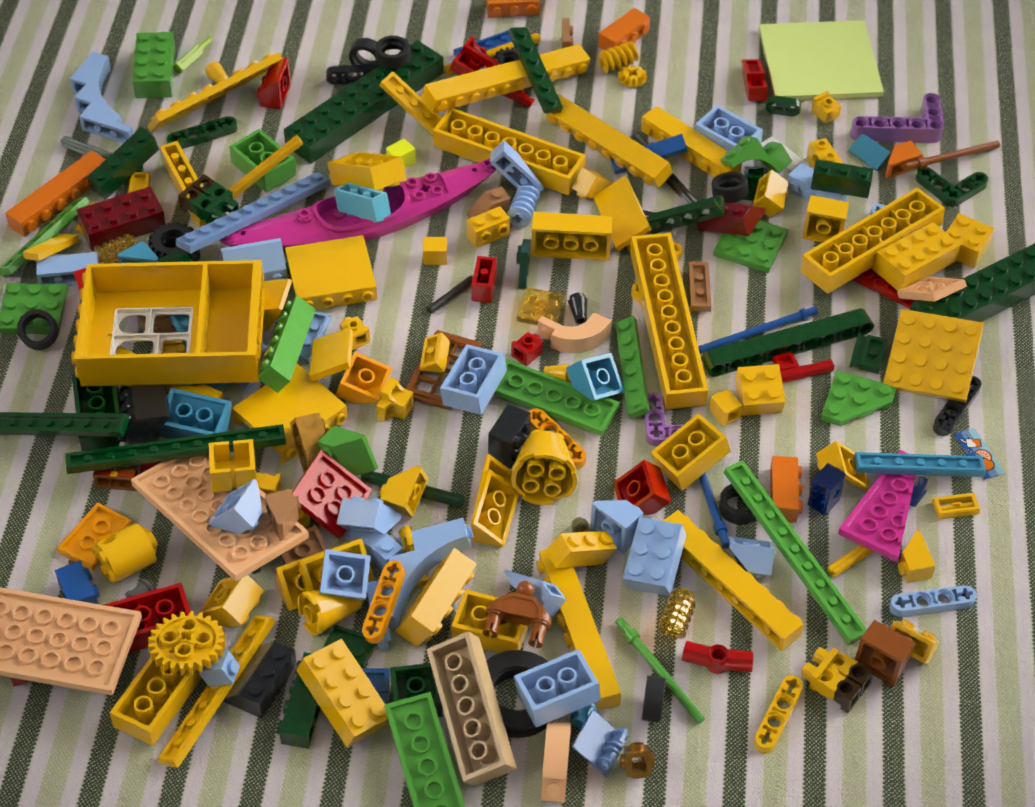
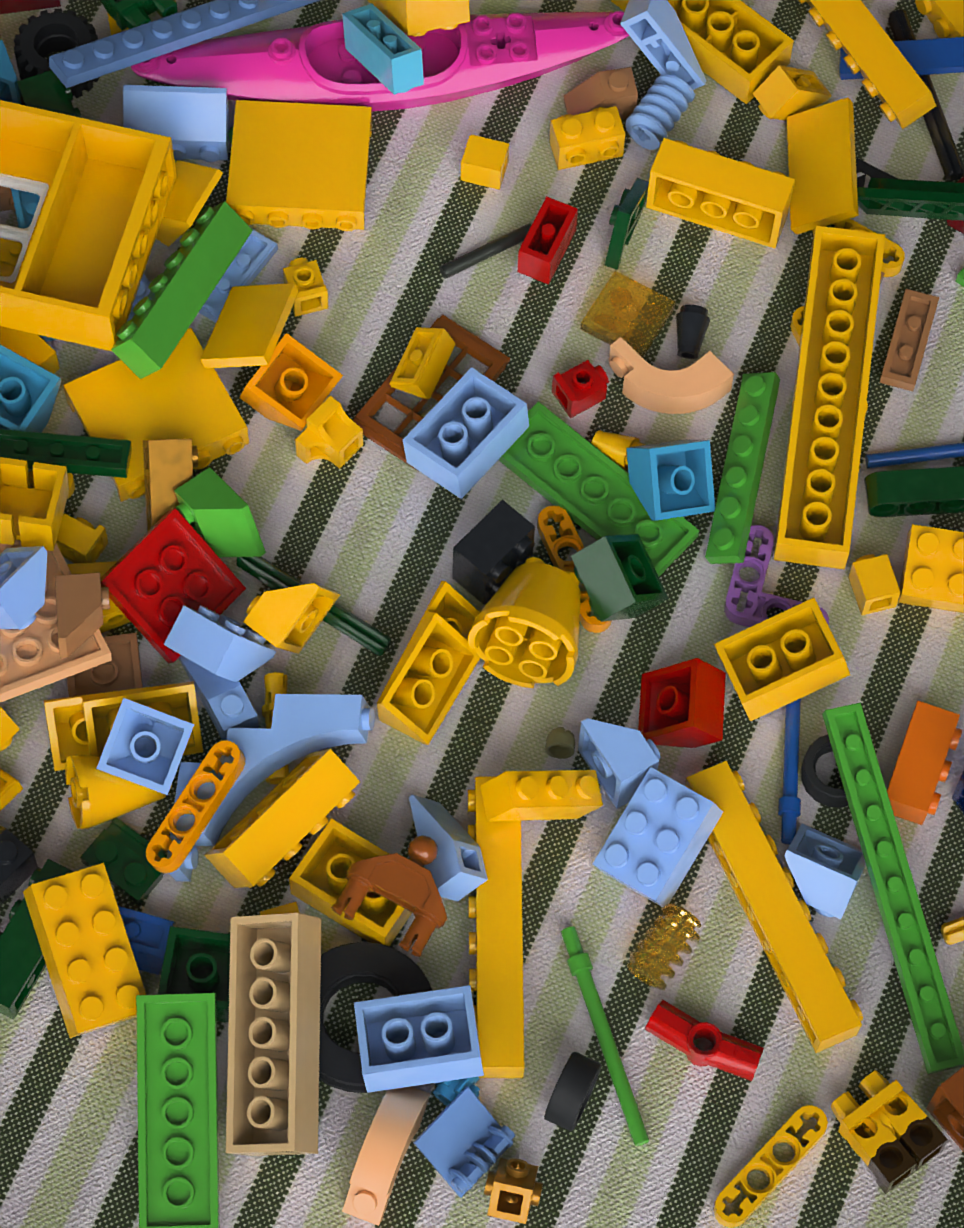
camera: 15 degrees right, 15 degrees up
(585, 431) = (618, 577): none -> dark green brick

